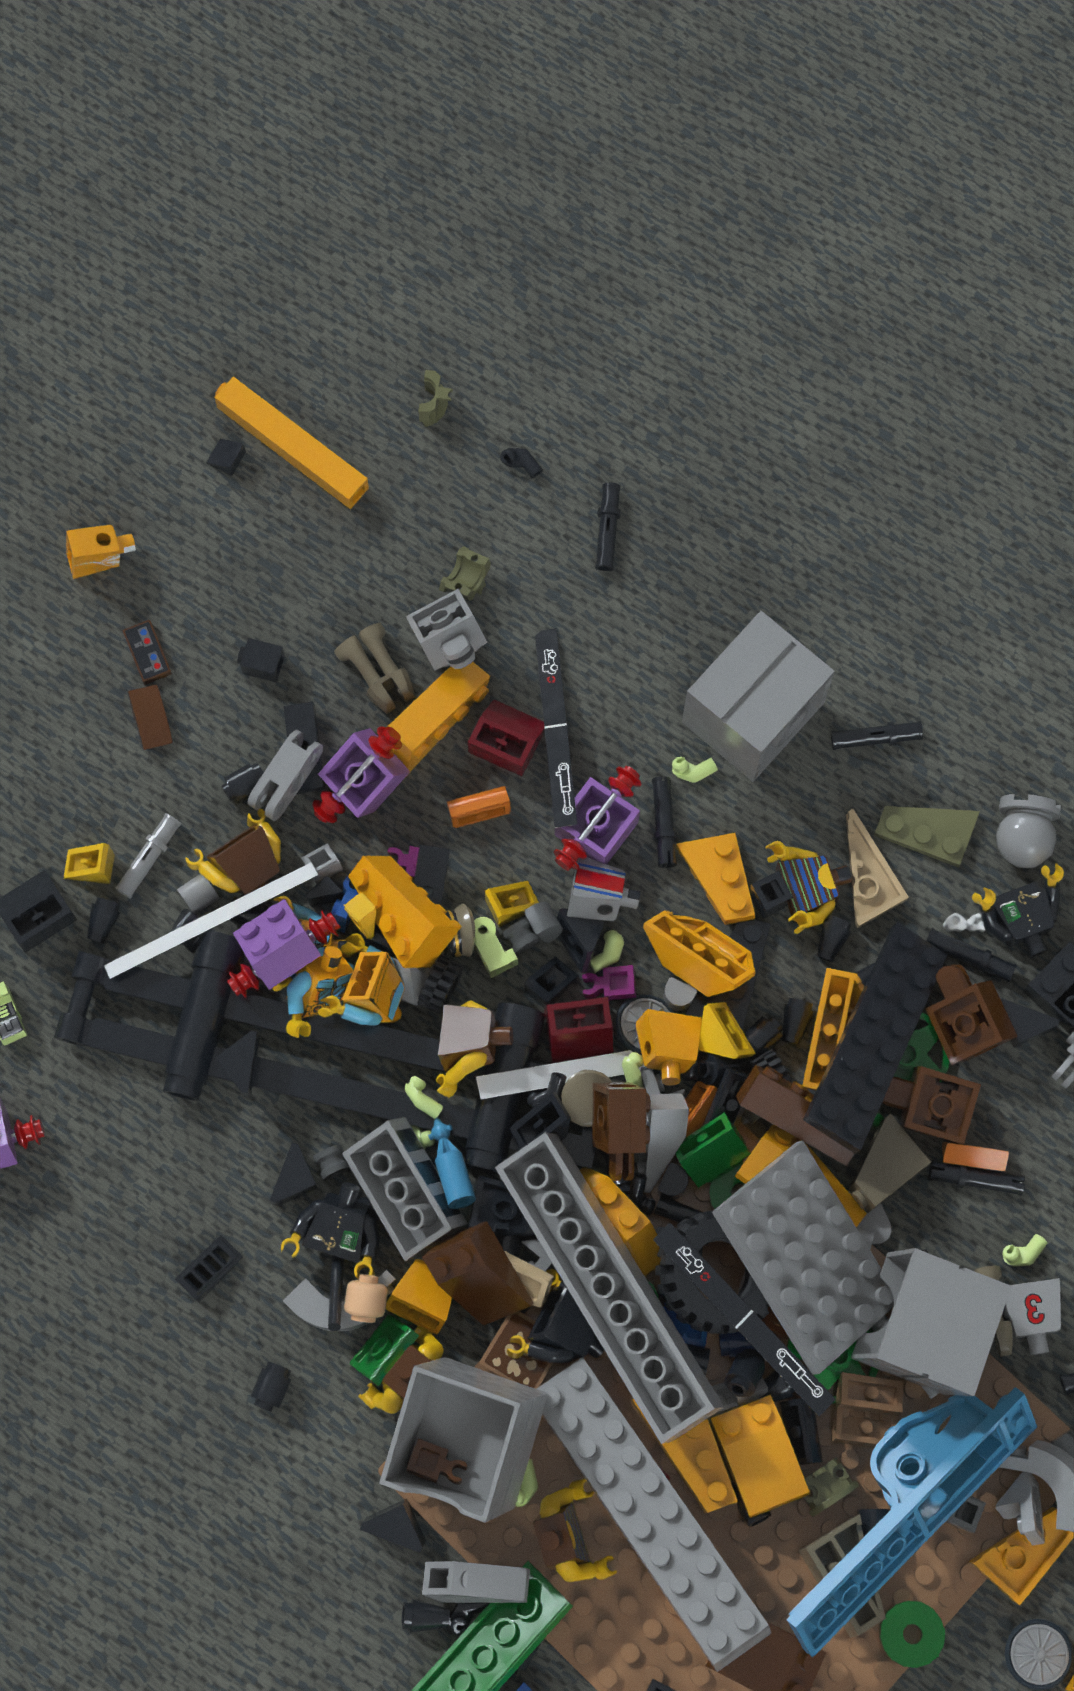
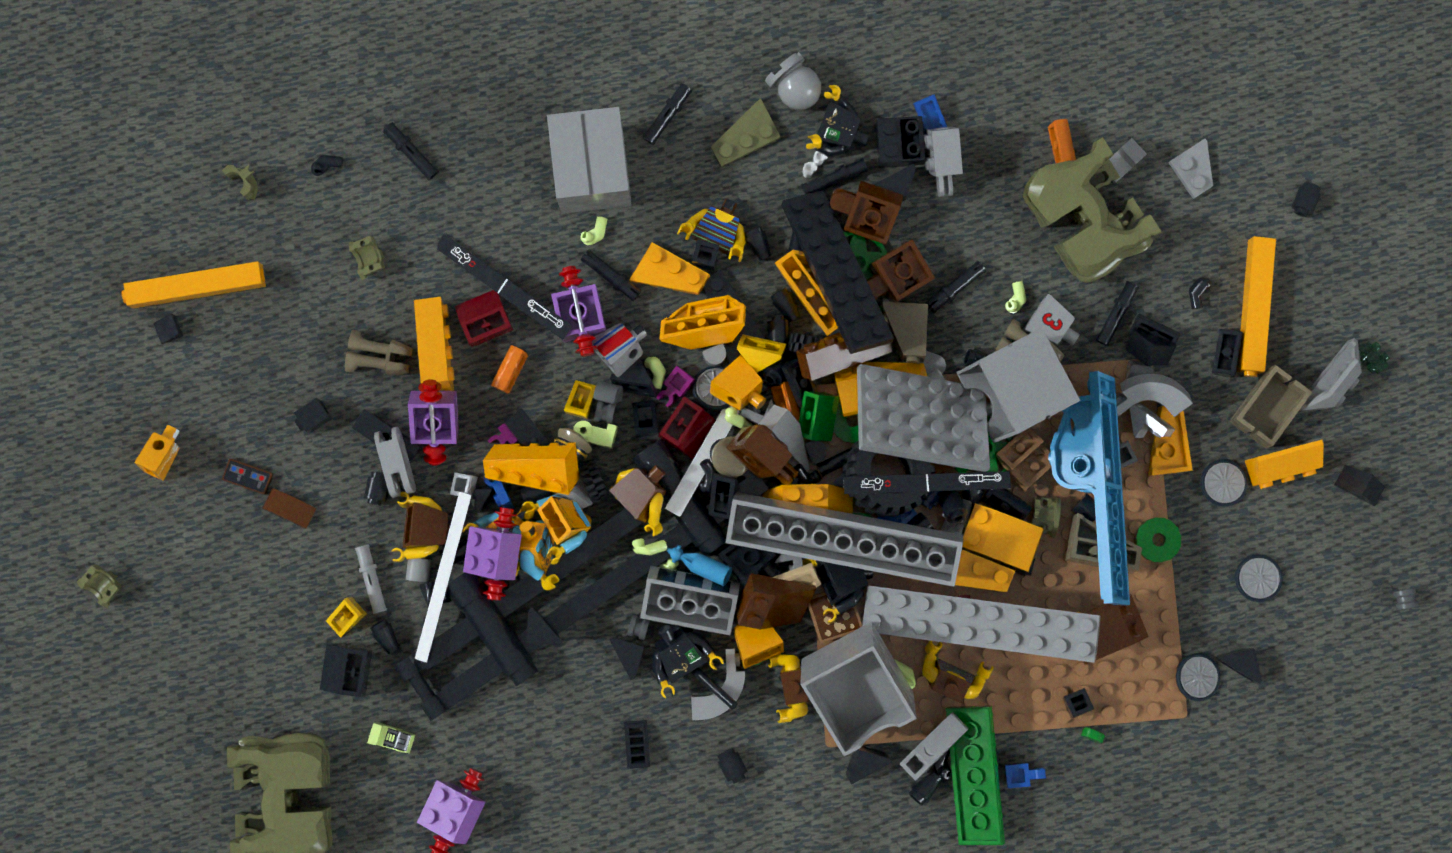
camera: 55 degrees left, 10 degrees up
(362, 914) = (516, 489): yellow slope -> none
(365, 1299) = (733, 675): light nougat head -> none
(383, 1349) = (767, 688): green tile -> none
(431, 1461) = (853, 716): reddish brown plate -> none
(447, 631) = (393, 298): light grey brick -> none
(873, 881) = (748, 192): tan wing -> none
(974, 1156) = (944, 276): orange slope -> none

